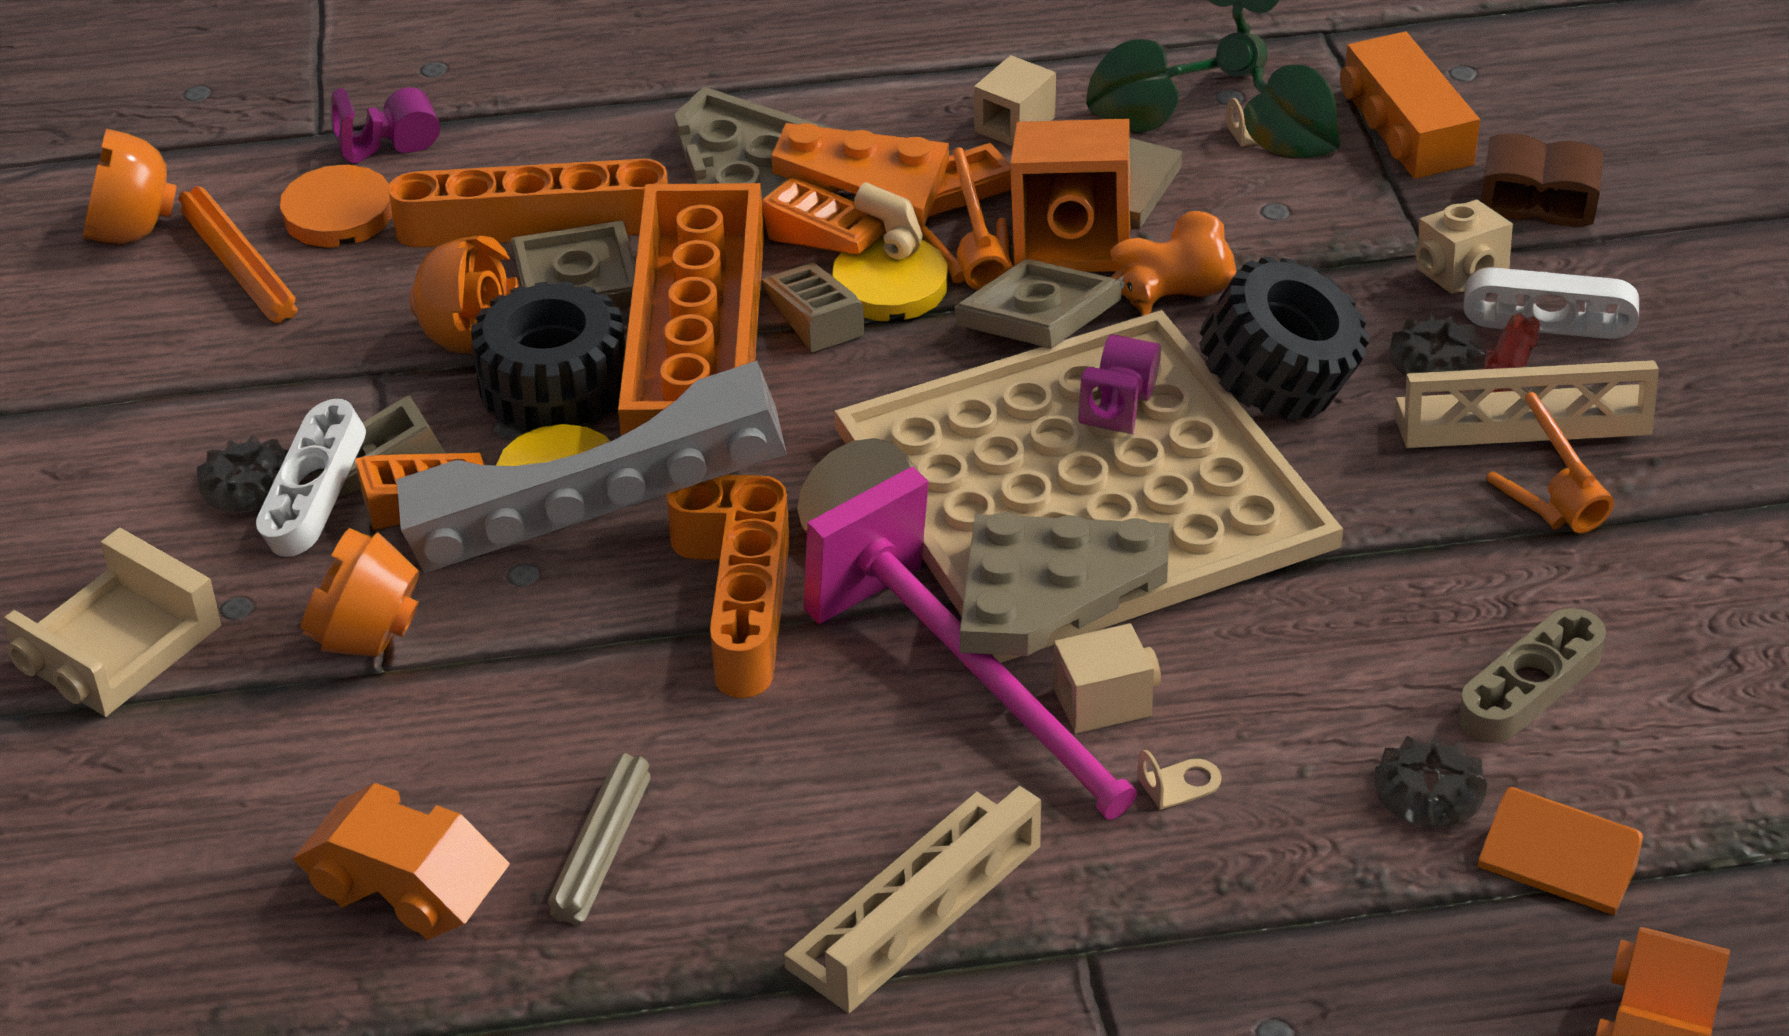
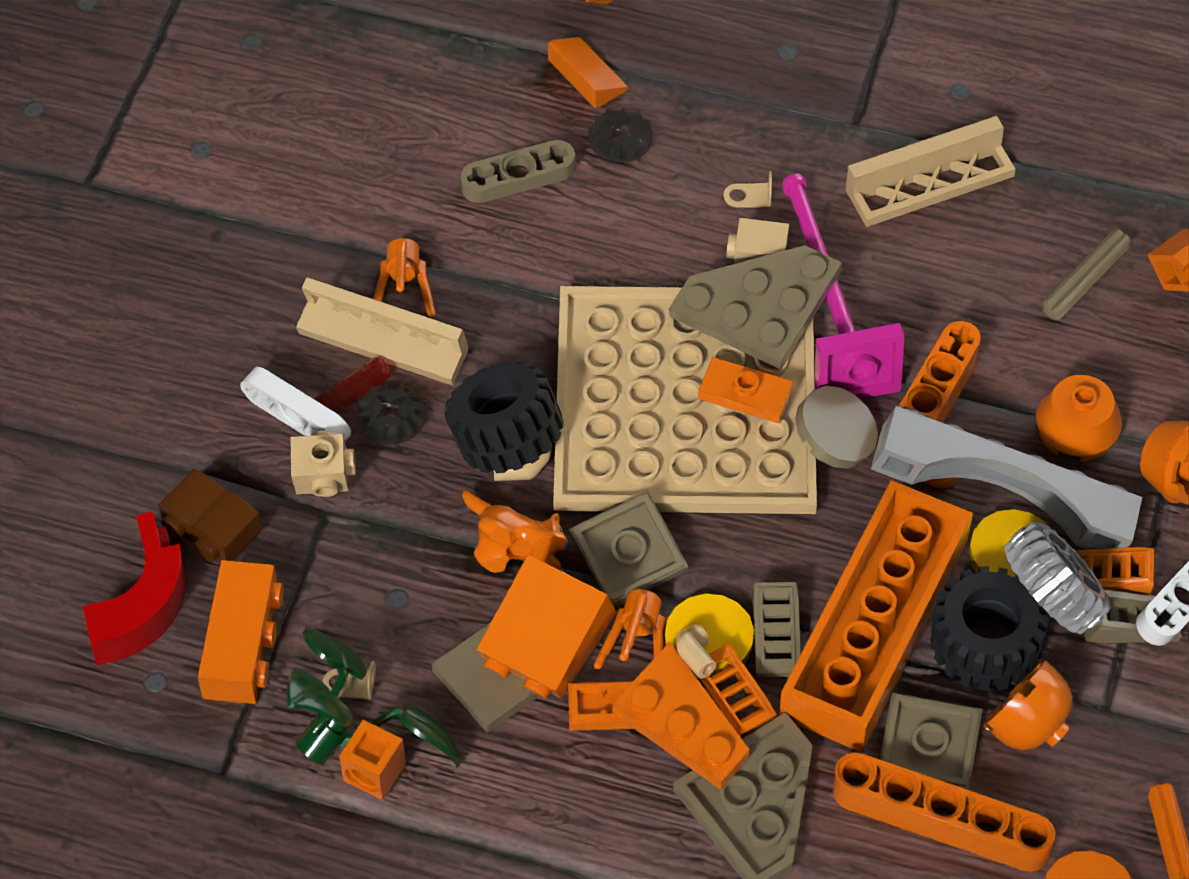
camera: 155 degrees left, 15 degrees up
(496, 386) = (1057, 577): none -> light grey gear
(530, 627) = (1079, 418): none -> orange cone
(1002, 481) = (745, 390): none -> orange plate
(1011, 95) = (521, 765): tan brick -> none
(1125, 374) = (621, 434): magenta leg -> none
(1175, 25) = (372, 760): none -> orange brick
(1532, 85) = (148, 609): none -> red arch

